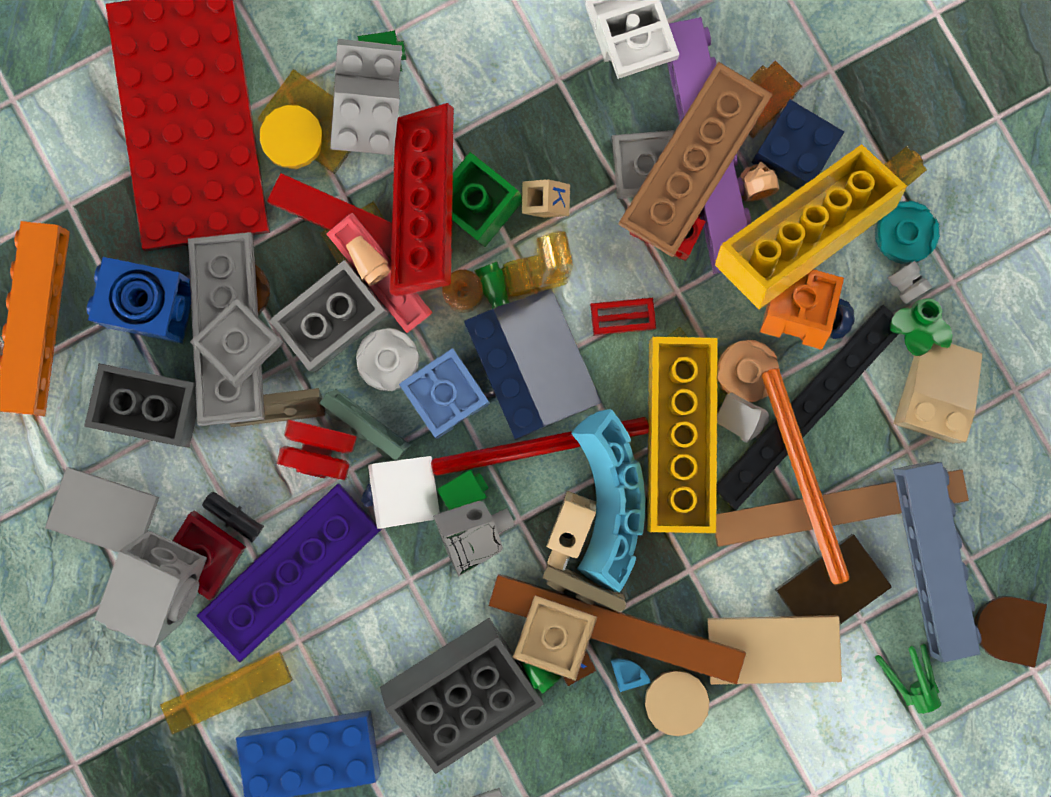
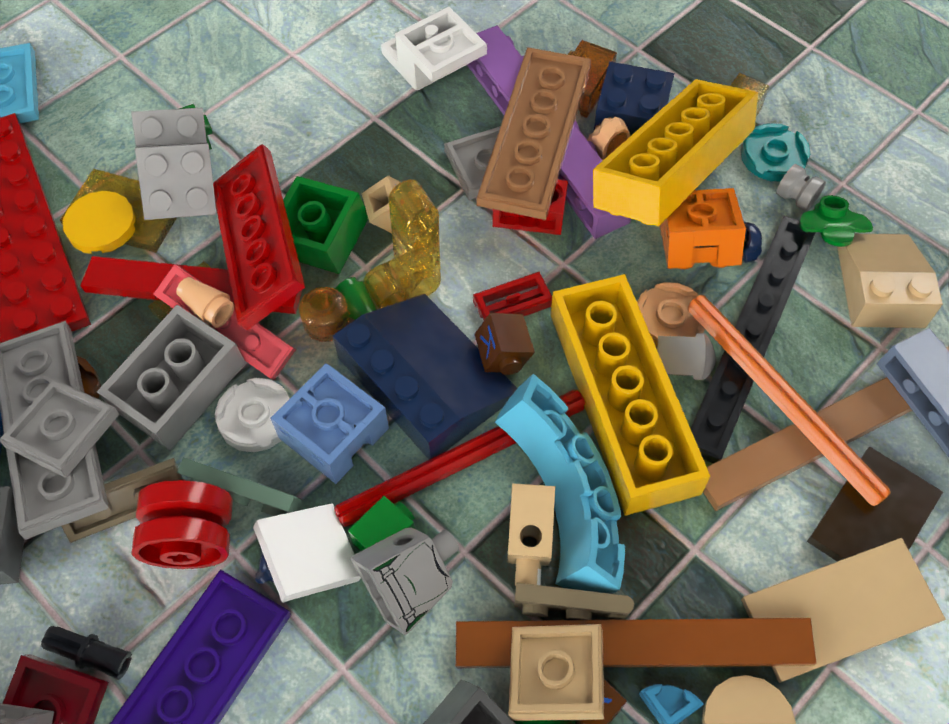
camera: 15 degrees left, 25 degrees down
(601, 363) = (504, 343): none -> reddish brown brick

